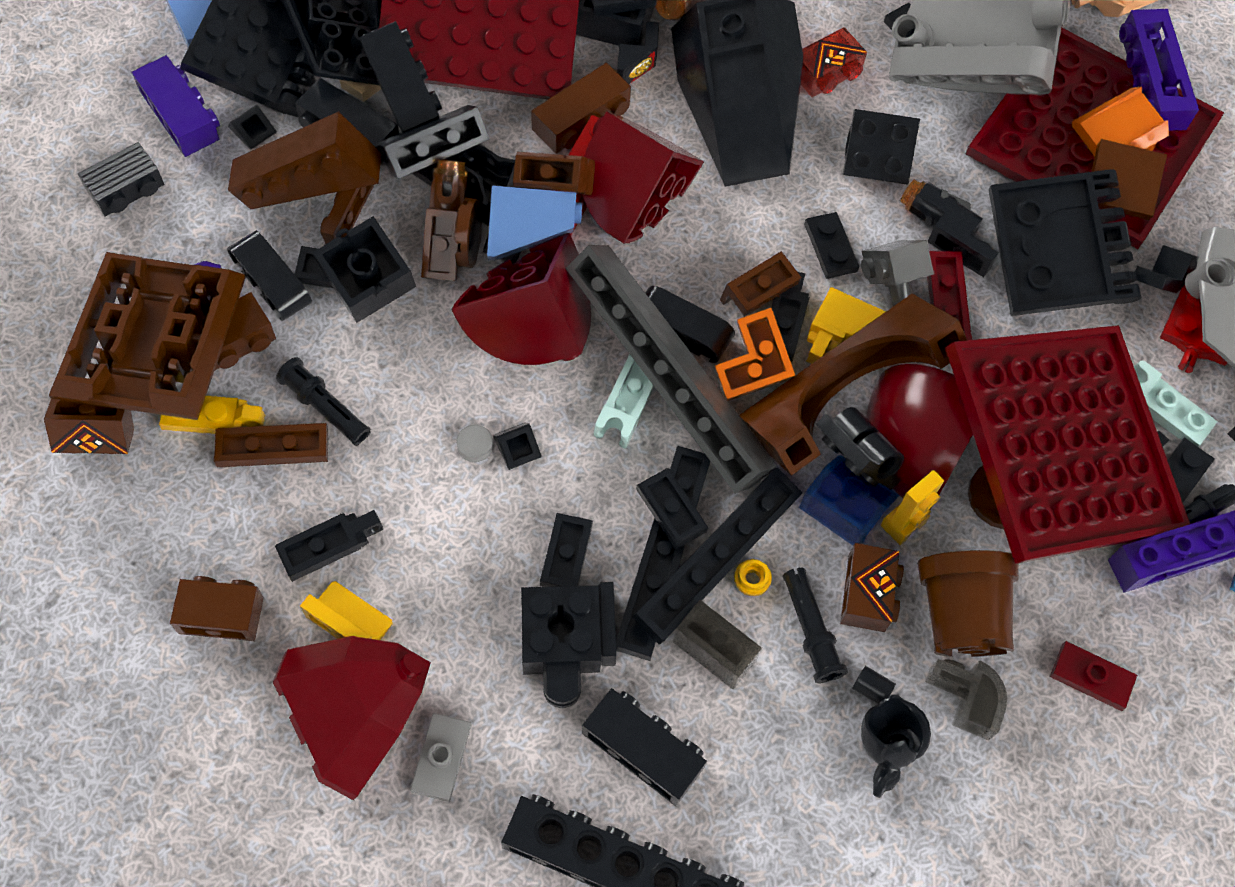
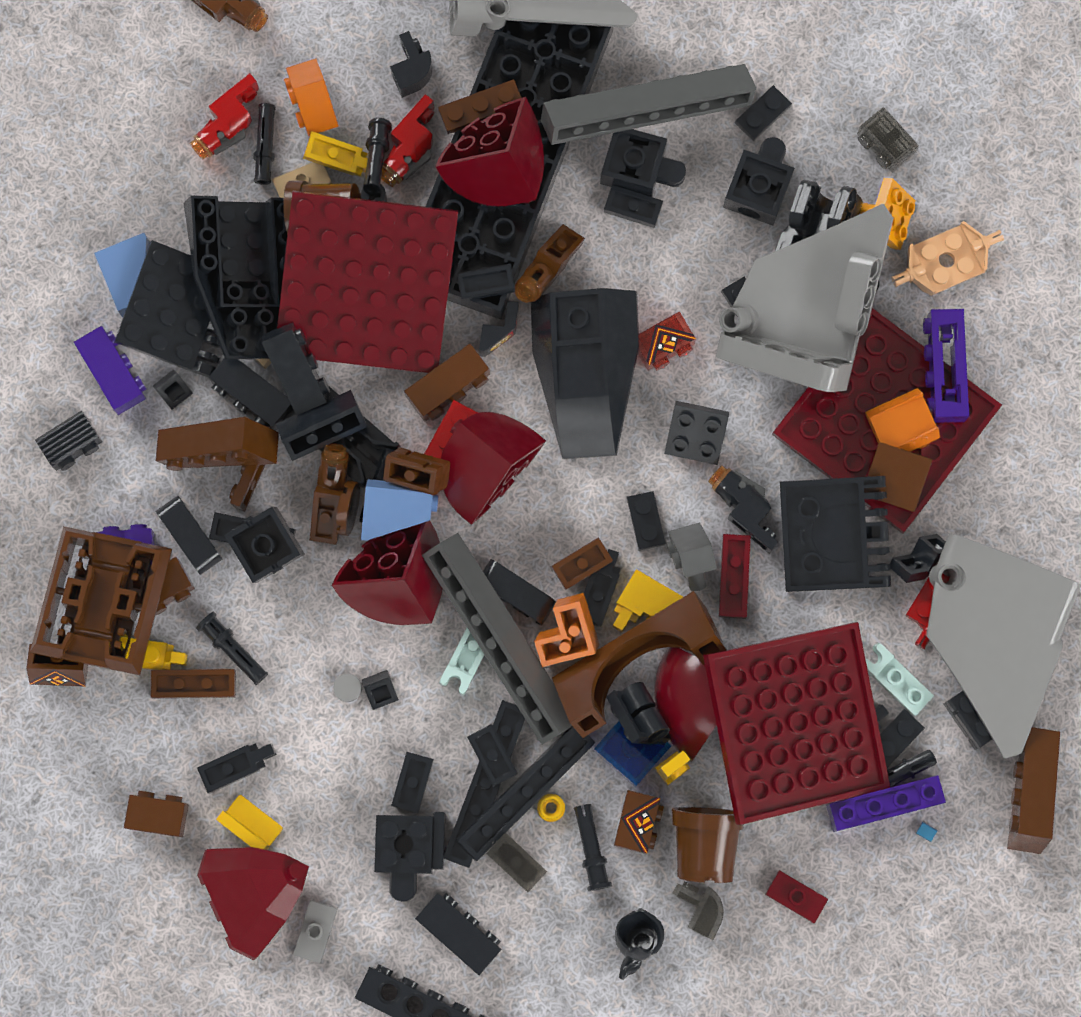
camera: 10 degrees right, 15 degrees up
(873, 685) = (631, 896): black hinge -> none

